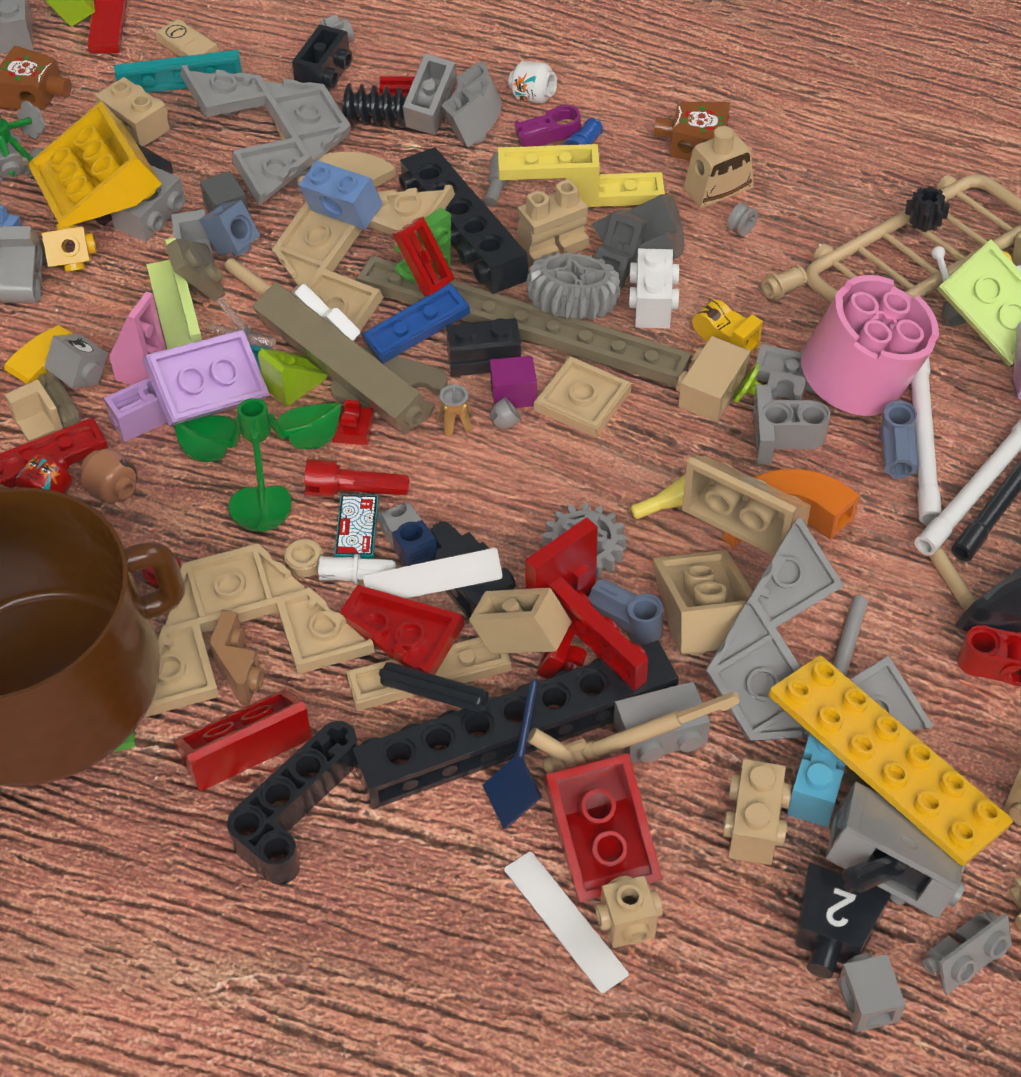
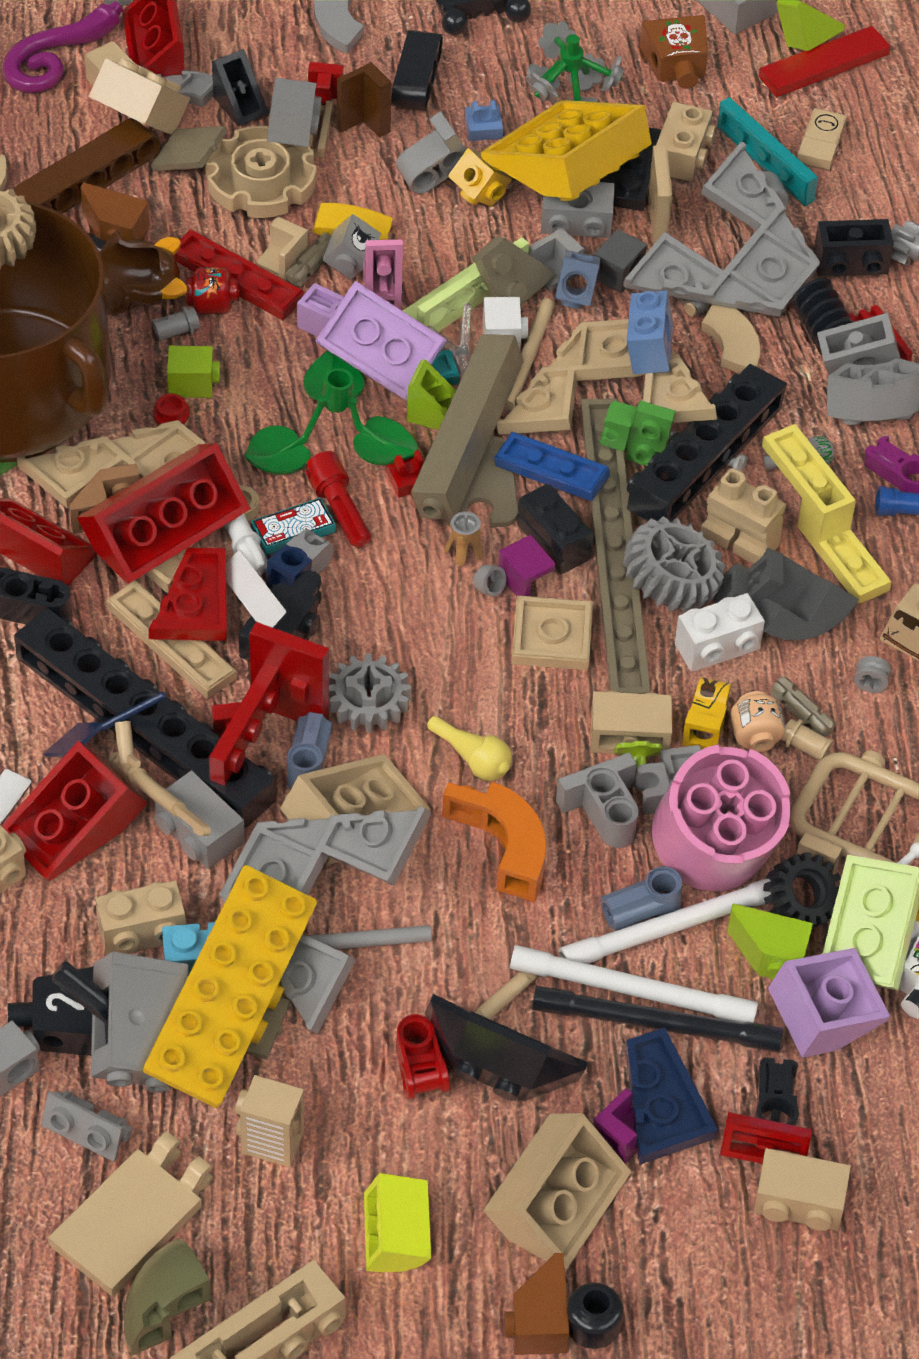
camera: 60 degrees right, 0 degrees up
(108, 475) = (244, 329): nougat head -> none
(134, 523) = (192, 371): none -> lime brick
(184, 142) = (659, 192): none -> tan tile
(240, 294) = (504, 317): none -> white brick
(296, 609) = (164, 512): none -> red slope
(332, 315) = (512, 387): white tile -> none
(419, 258) = (619, 396): red tile -> none
(434, 687) = (136, 638): black axle -> none
(520, 621) = (227, 665): tan brick -> none
(740, 503) = (453, 778): tan slope -> none
(747, 272) = (802, 706): none -> dark tan axle
(757, 297) = (757, 721): none -> light nougat head
(954, 339) = (816, 875): none -> black tyre
(978, 378) = (768, 938): none -> lime slope

